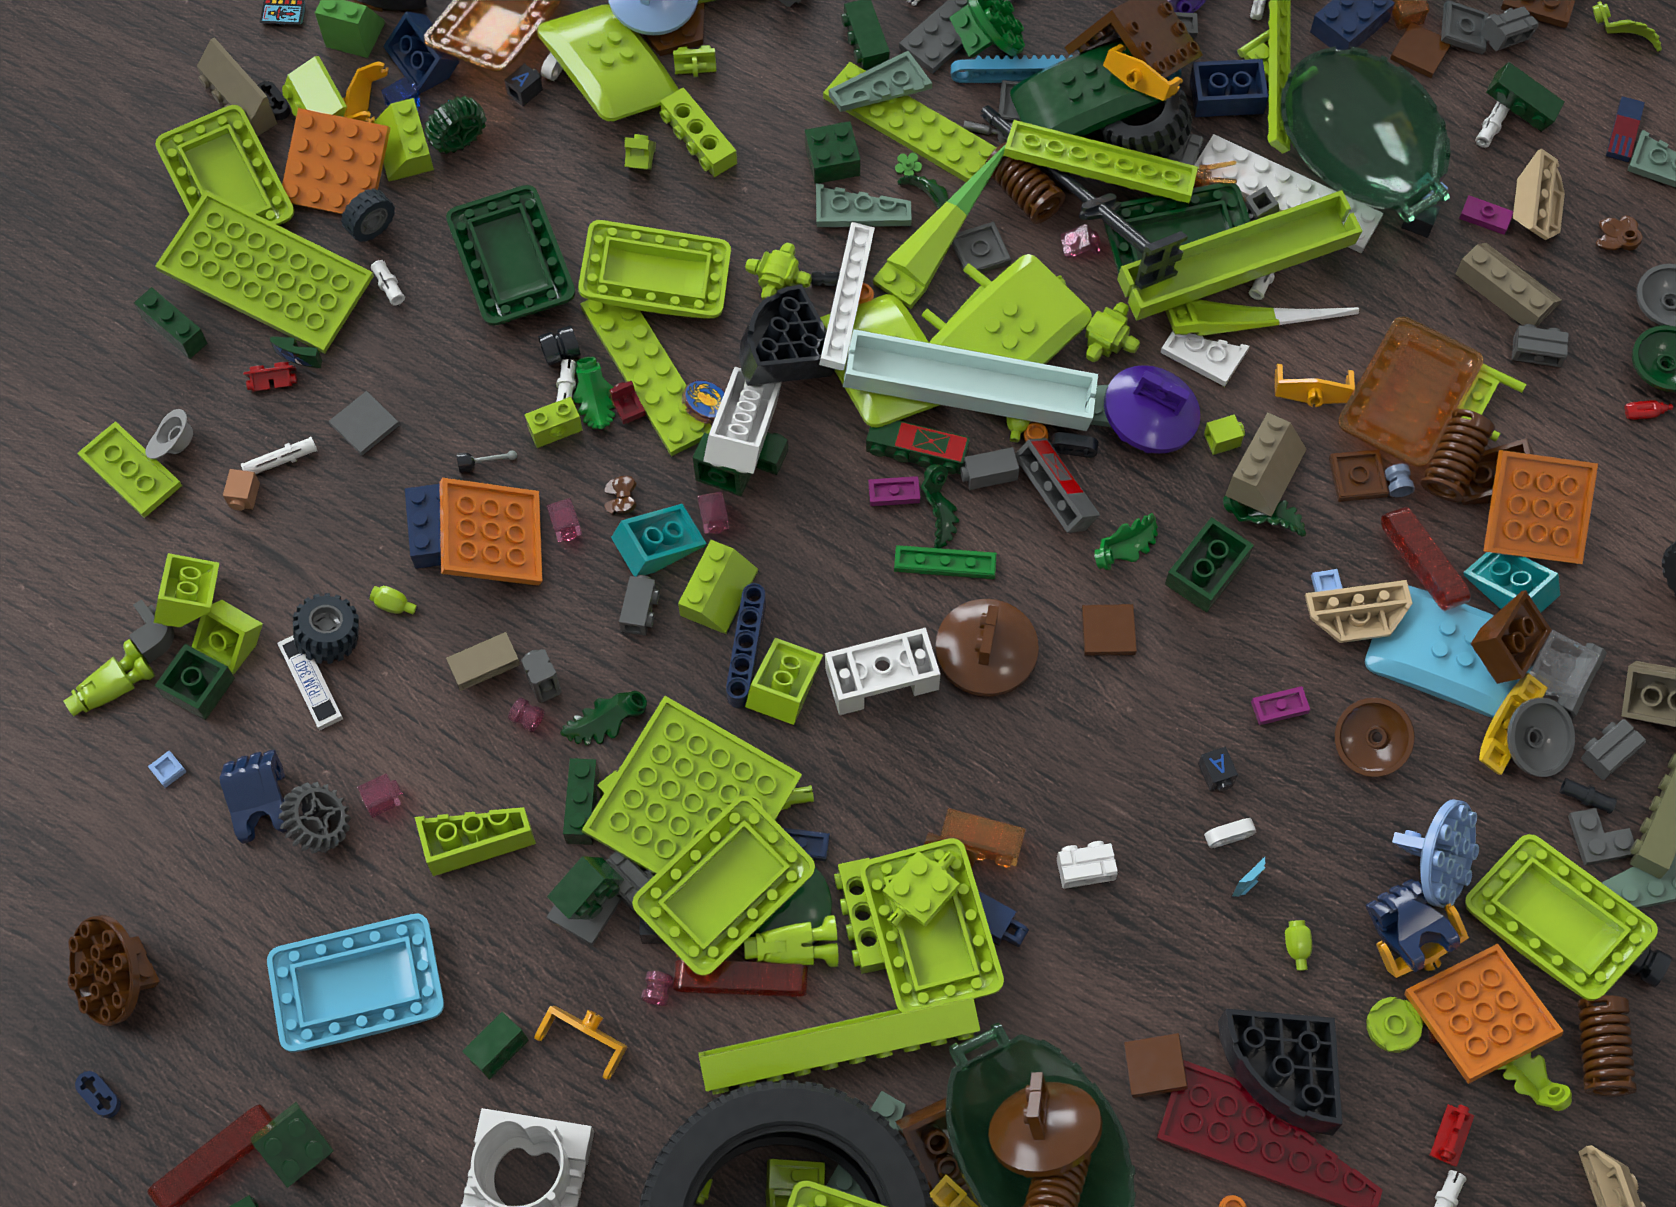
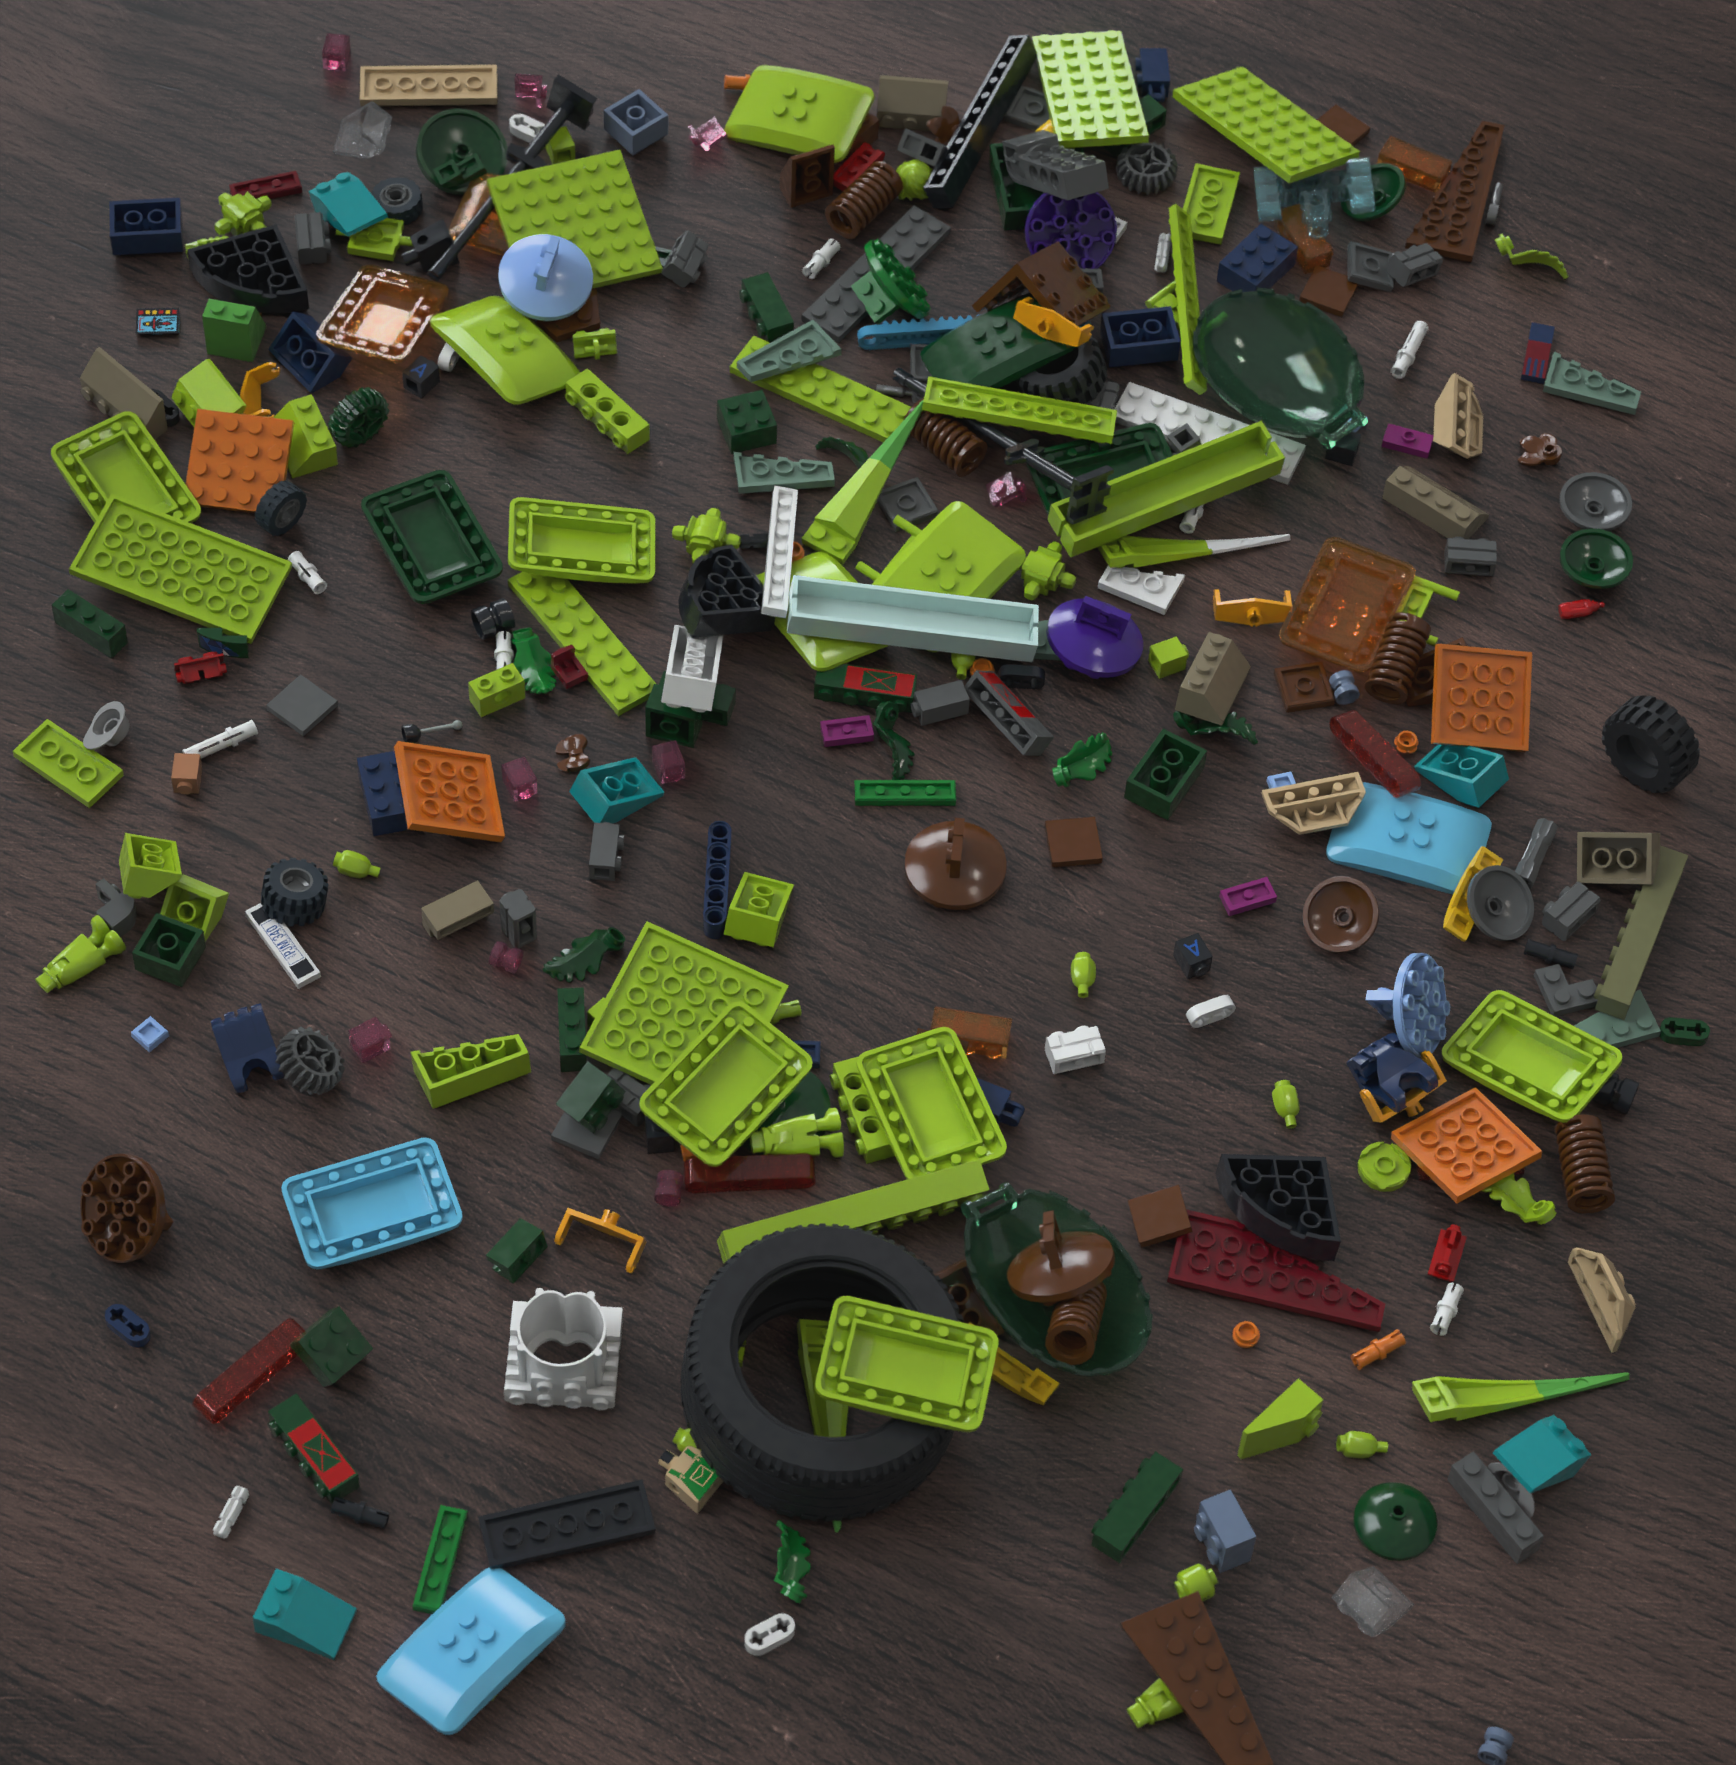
camera: 10 degrees left, 10 degrees down
(401, 91) = (293, 390): clear blue brick -> none
(639, 152) = (550, 433): lime brick -> none
(702, 400) = (646, 660): tile -> none
(717, 587) = (681, 829): lime slope -> none
(854, 672) = (828, 889): white plate -> none
(909, 165) = (824, 430): bright green plant -> none
(921, 889) = (918, 1071): lime plate -> none
(1103, 779) = (1083, 973): none -> lime plant
(1205, 177) = (1124, 421): clear orange plant -> none
(1249, 879) = (1232, 1047): medium azure piece -> none
(1457, 539) = (1406, 737): none -> orange plate
(1511, 639) = (1463, 815): reddish brown slope -> none
(1525, 97) = (1435, 327): dark green brick -> none
(1563, 665) = (1516, 838): clear slope -> none

